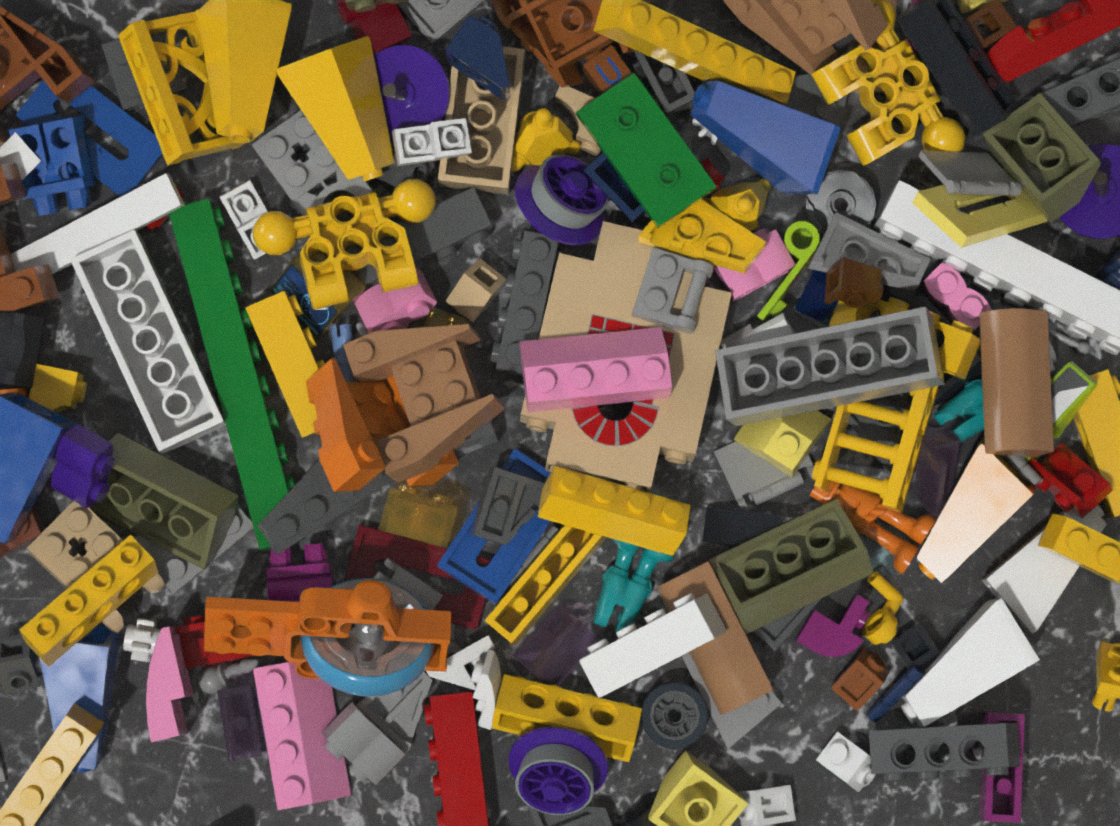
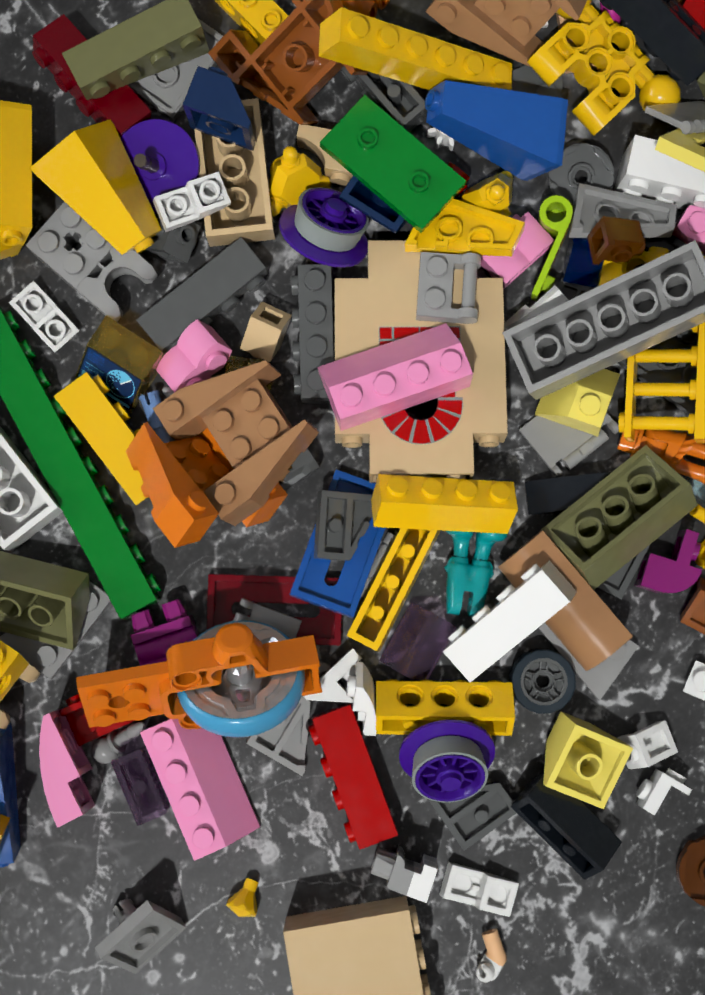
camera: 15 degrees left, 0 degrees up
(141, 639) = (28, 728): white gear -> none
(310, 506) = (159, 567): dark grey wing -> none
(363, 744) = (260, 778): light grey brick -> none
(411, 201) = (152, 289): yellow connector -> none
(419, 517) = (262, 553): clear yellow brick -> none
(605, 69) = (334, 102): dark orange brick -> none

